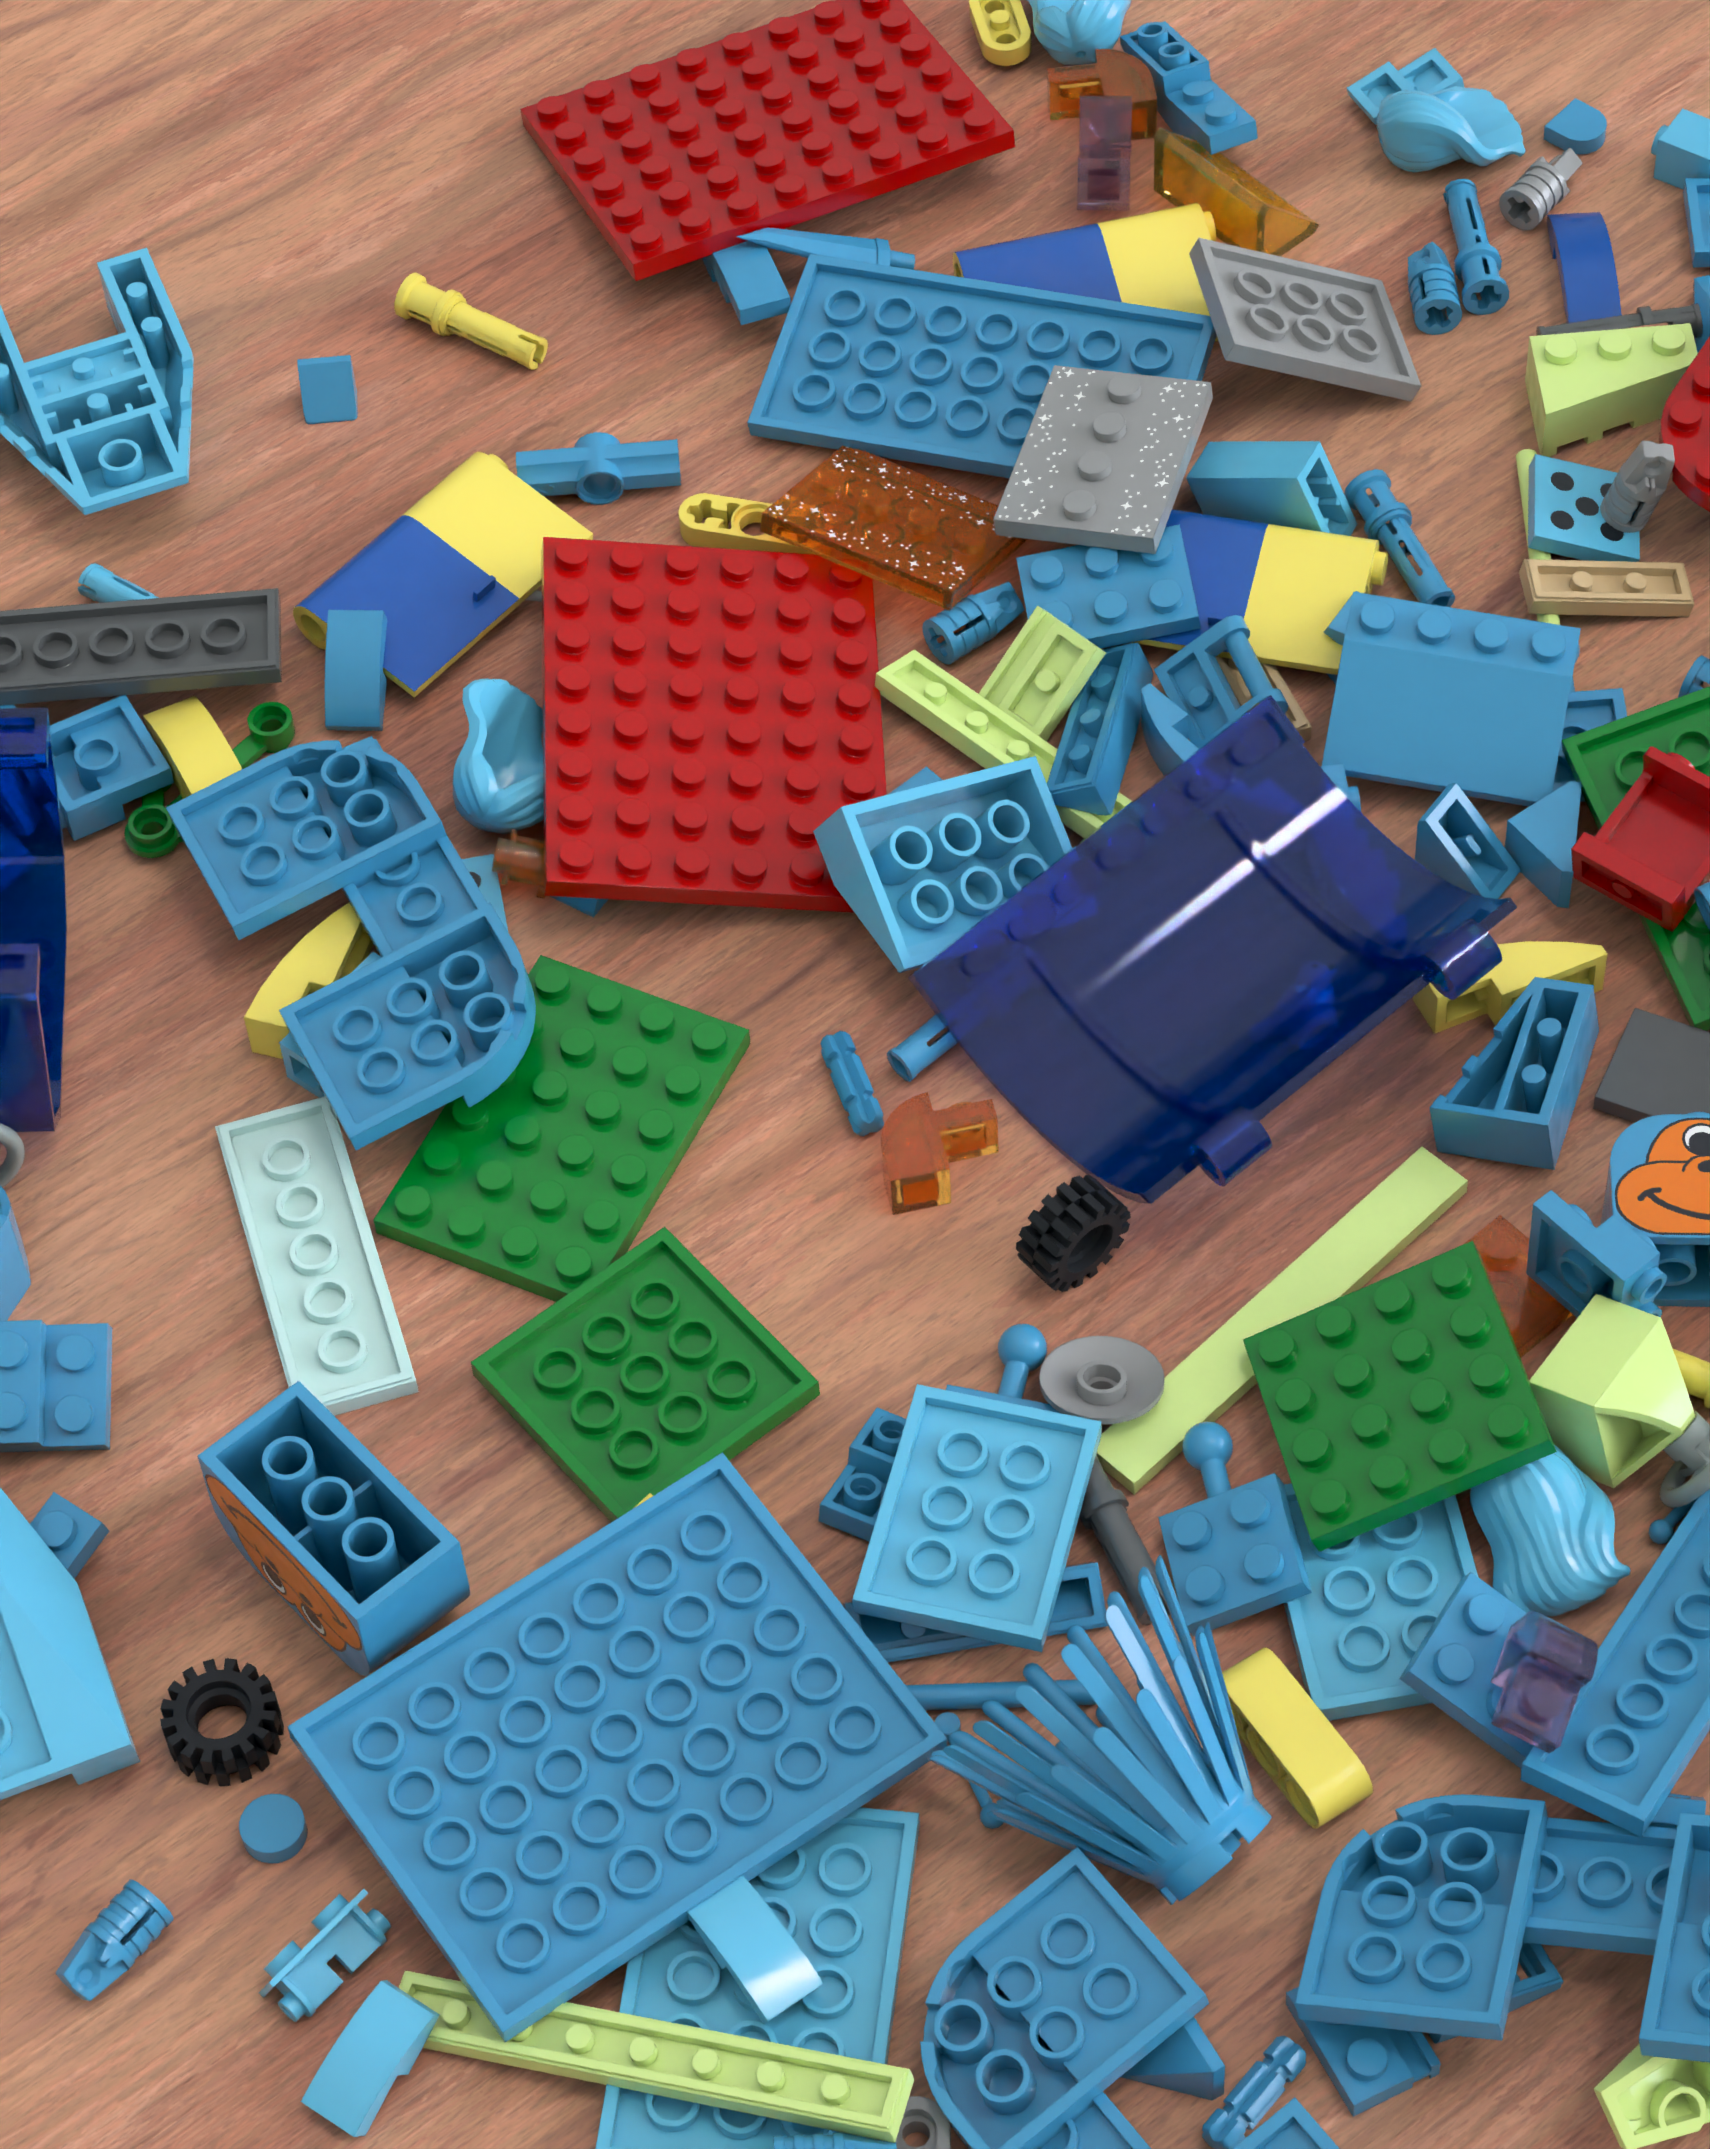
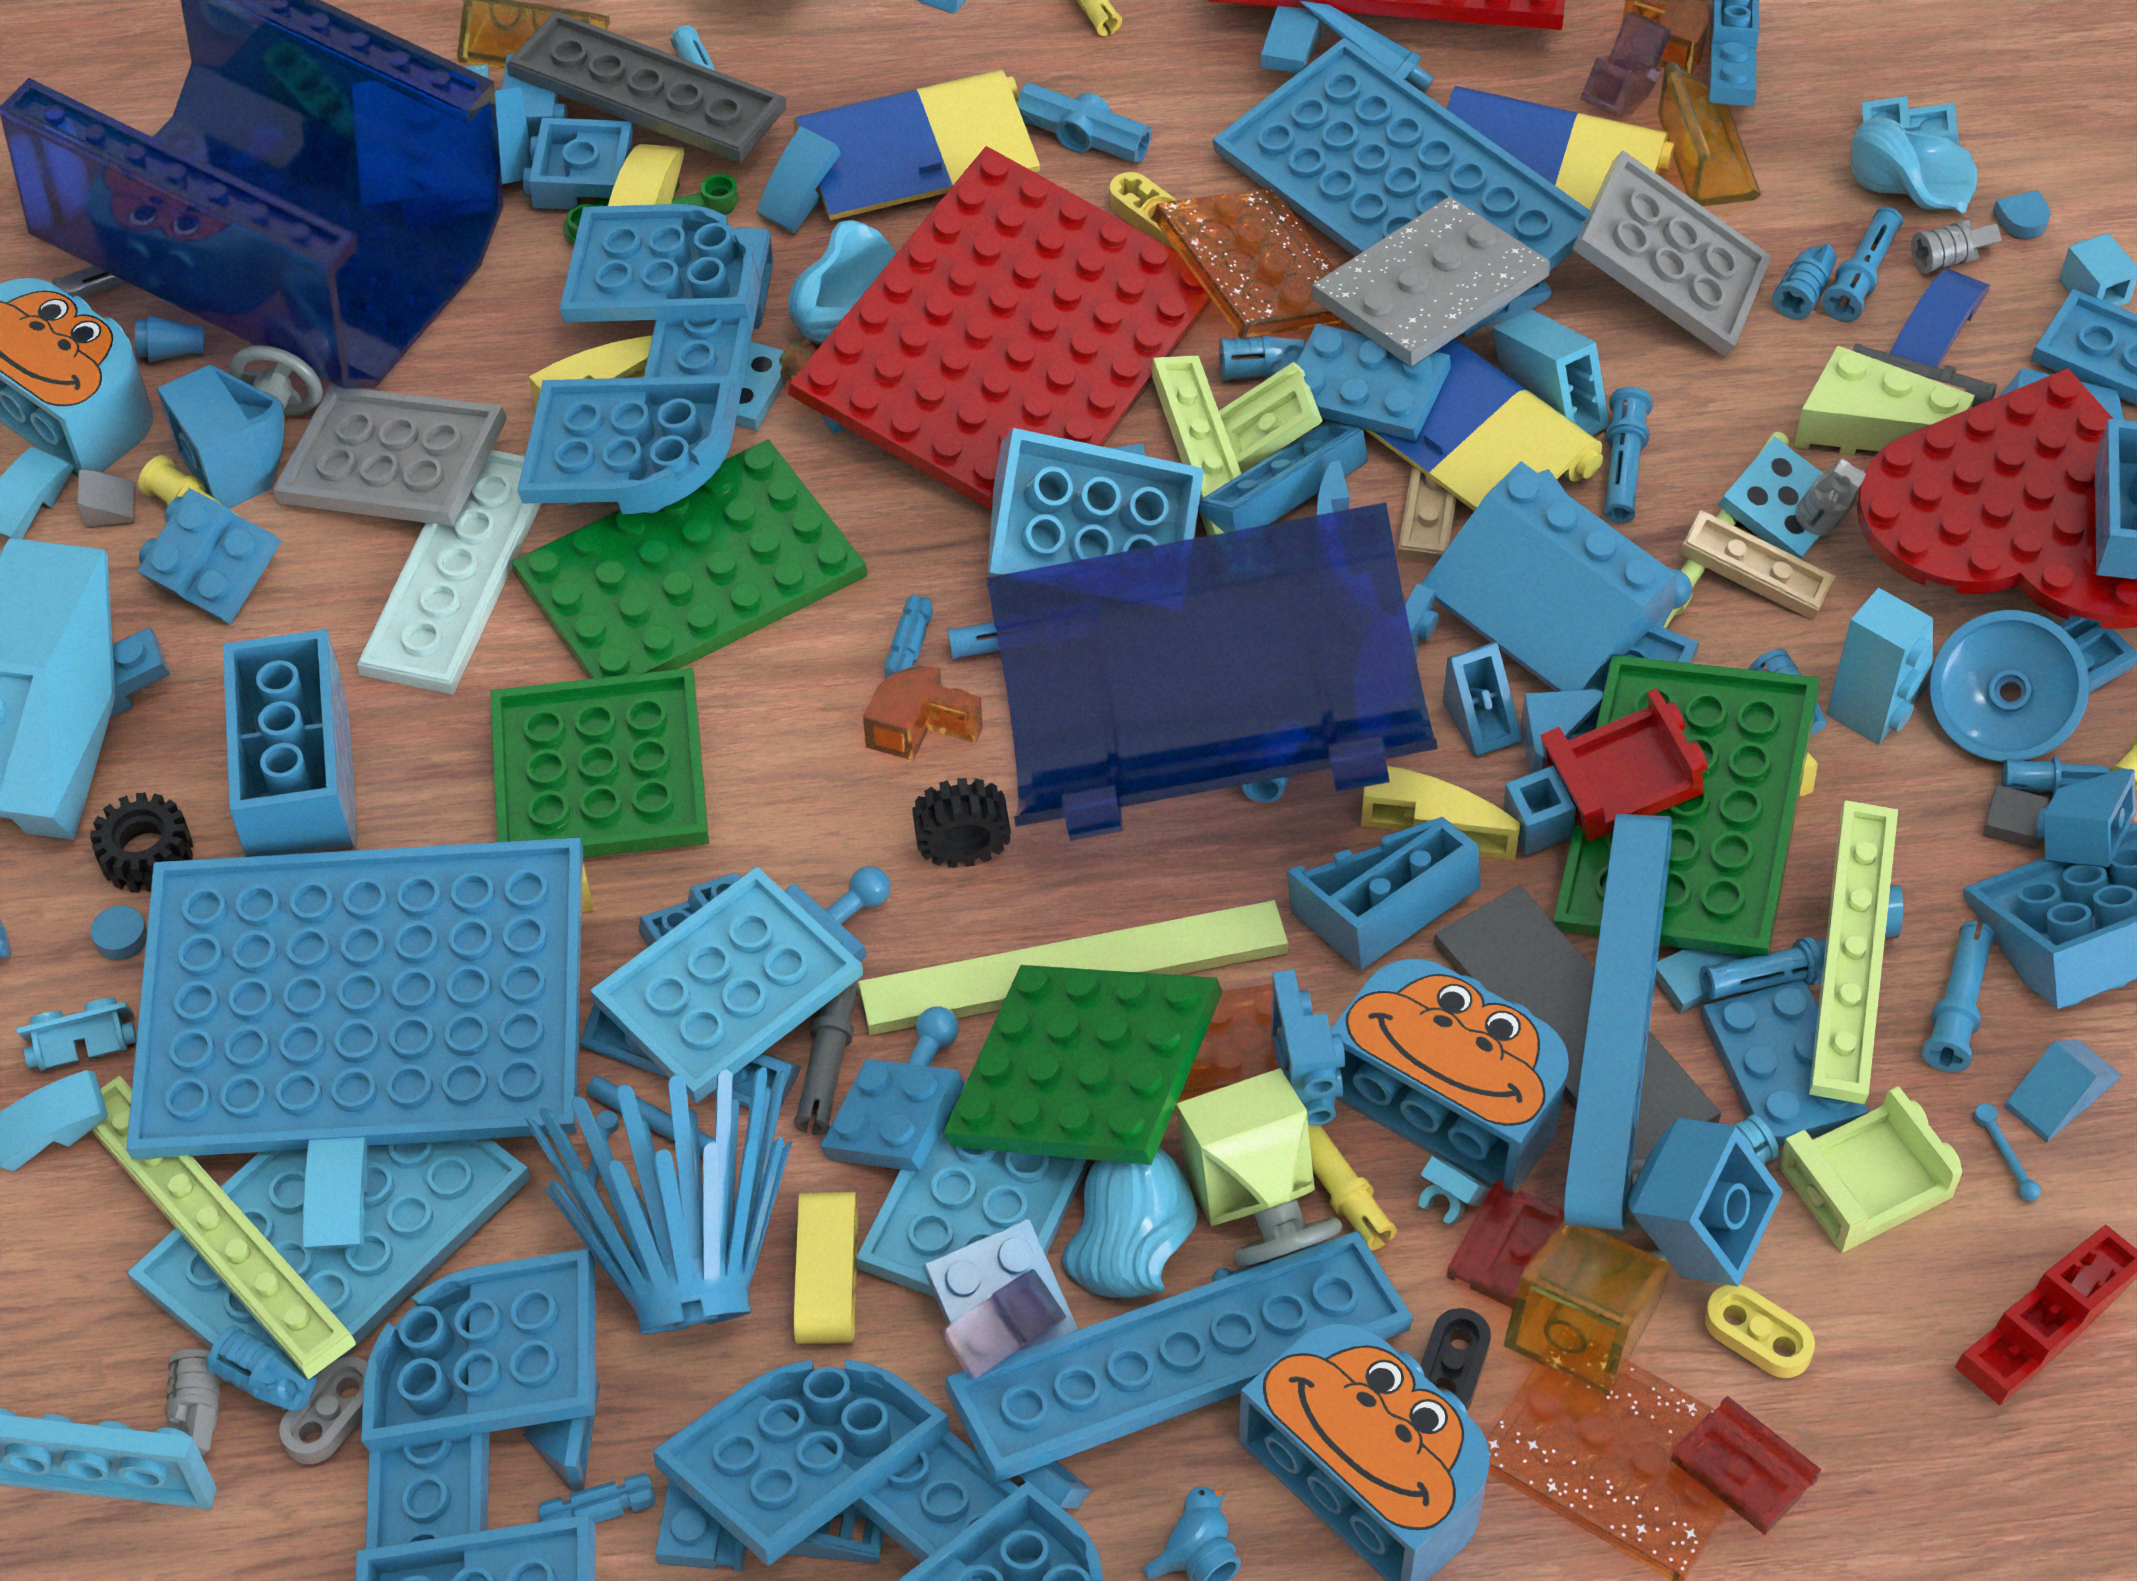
camera: 30 degrees right, 0 degrees up
(151, 1177) = (390, 455): none -> light grey plate
(1102, 1379) = (901, 938): light grey dish -> none
(1200, 687) = (1384, 478): dark azure plate -> none
(1609, 918) = (1541, 808): none -> dark azure brick

